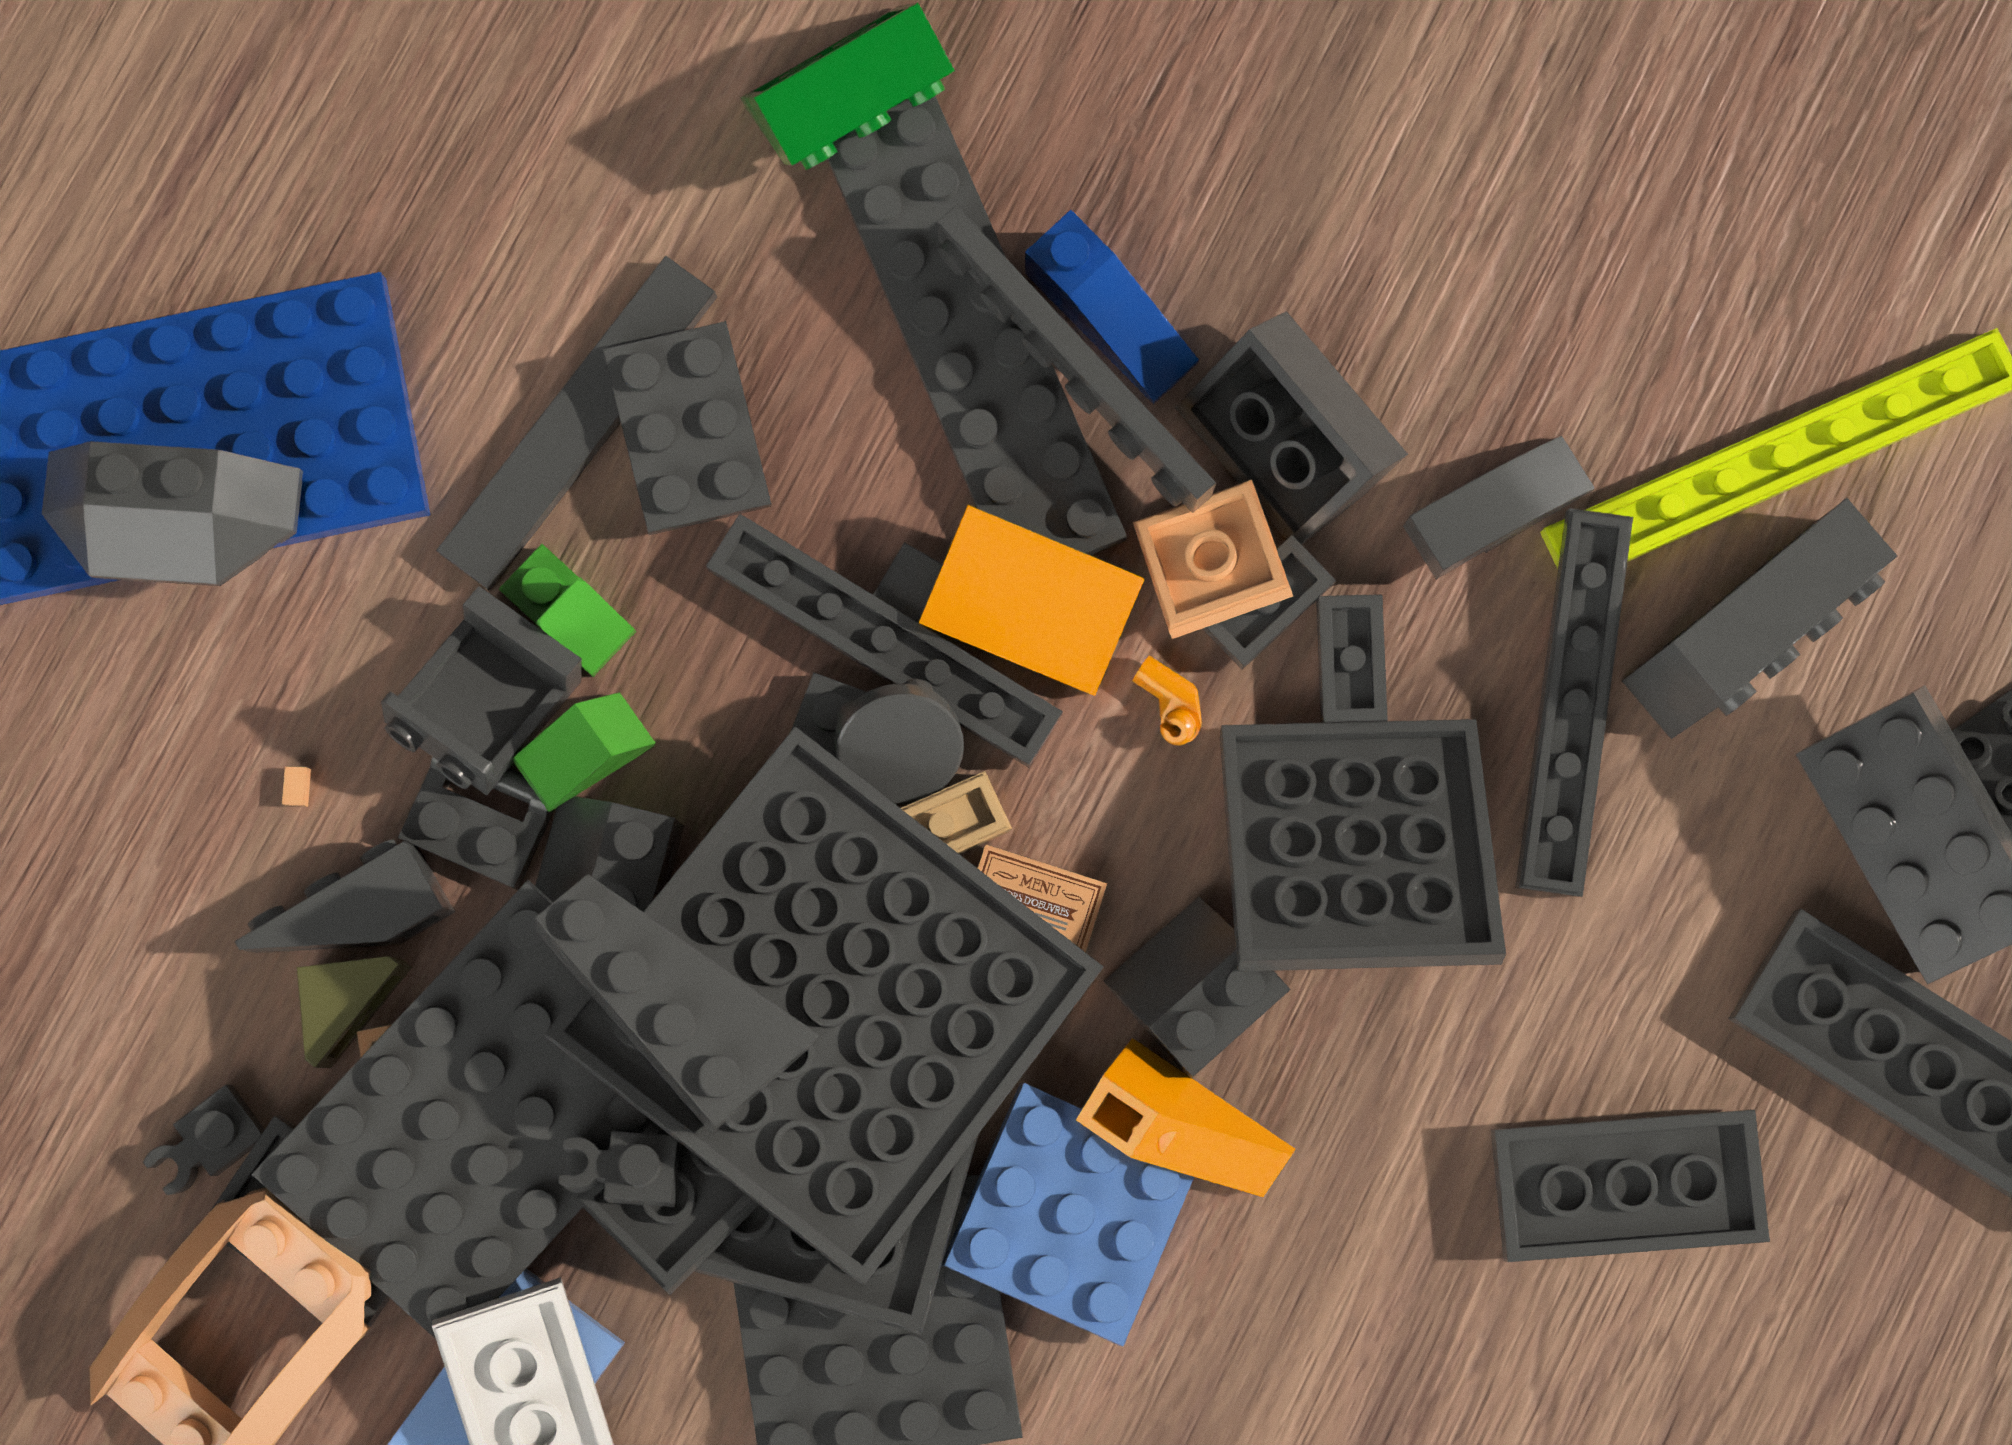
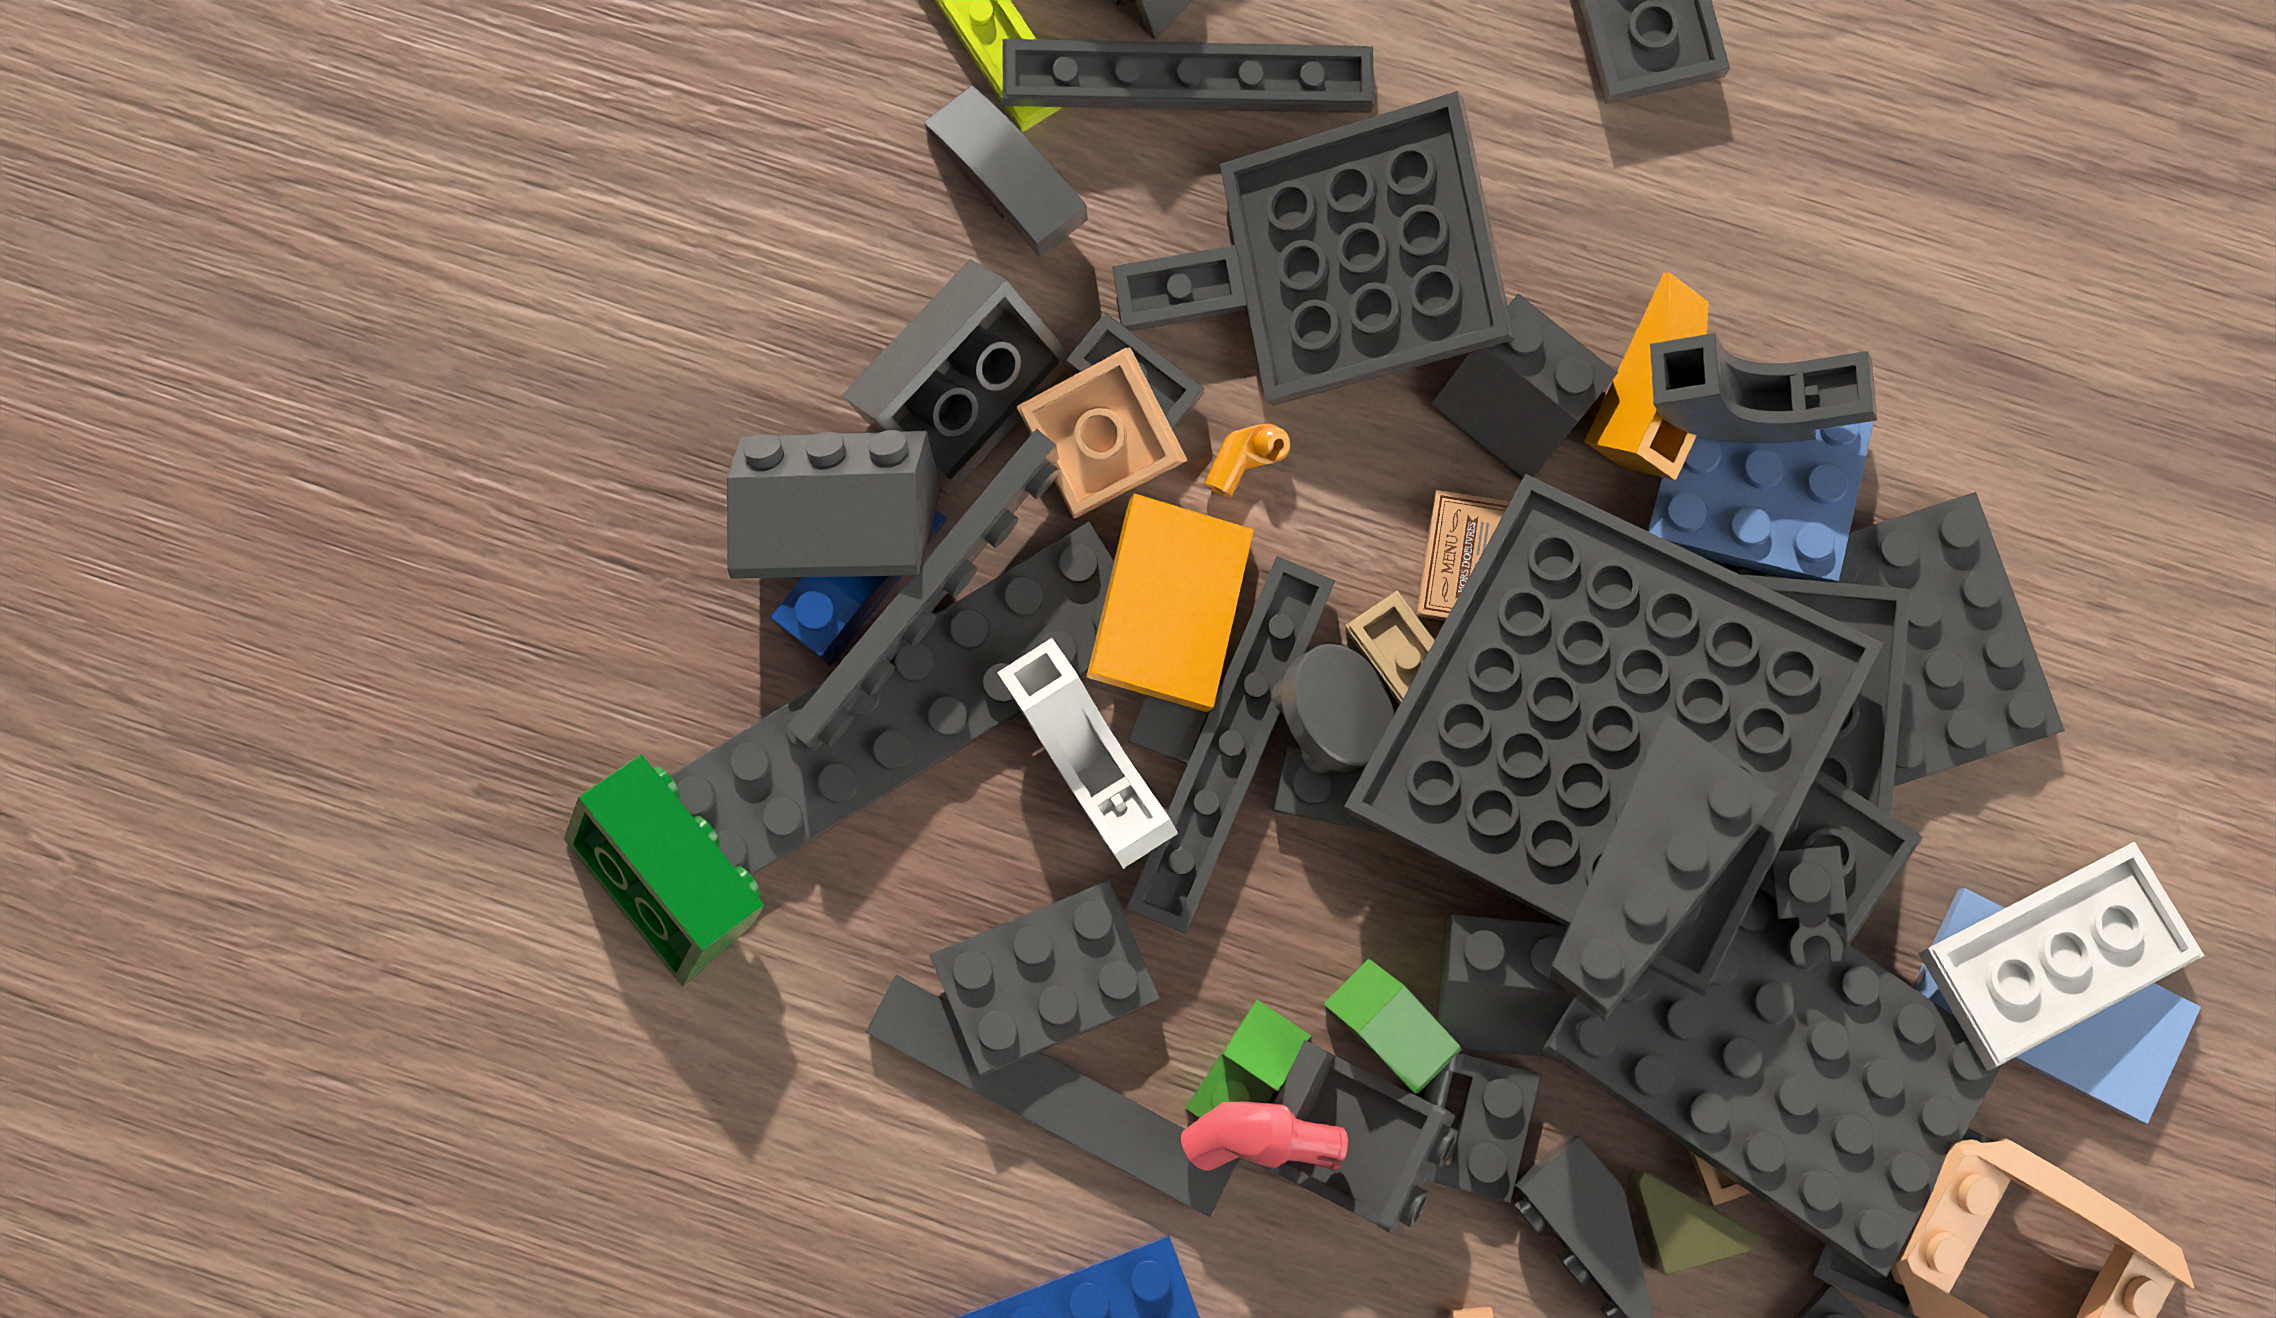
camera: 100 degrees left, 0 degrees up
(493, 601) = (1261, 1135): none -> coral arm
(895, 499) = (1087, 753): none -> white arch
(1141, 1208) = (1753, 402): none -> dark grey arch
(1171, 280) = (830, 504): none -> dark grey slope

